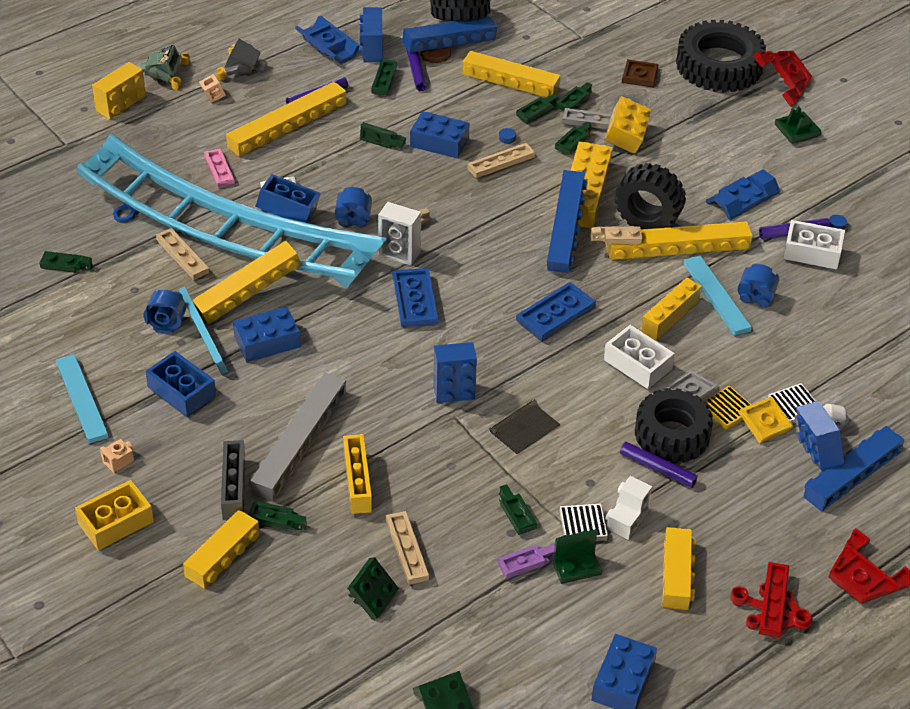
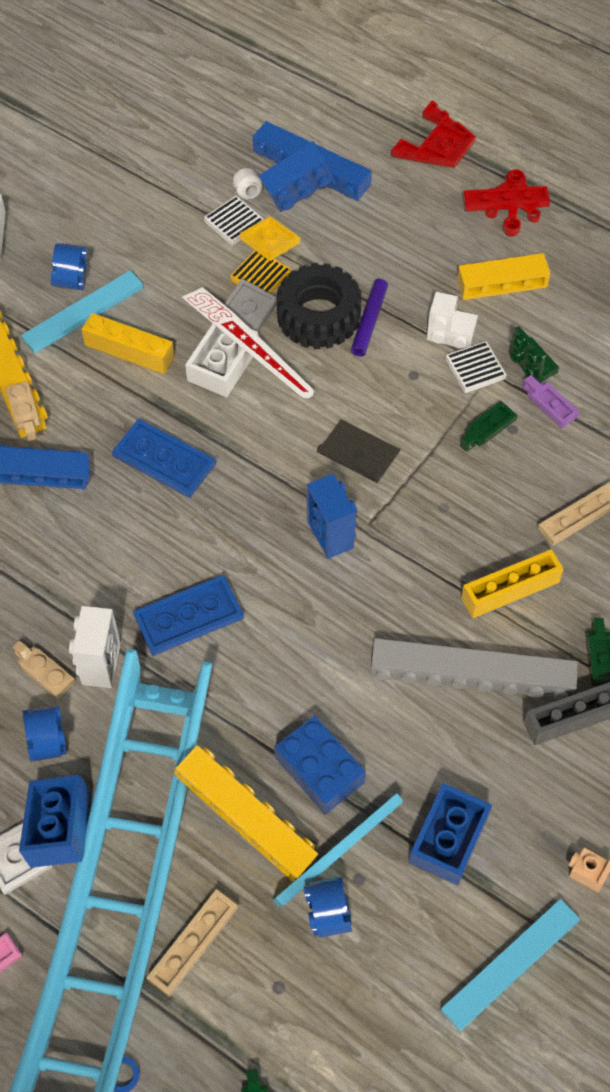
camera: 105 degrees left, 15 degrees up
(649, 362) = (246, 338): none -> sticker

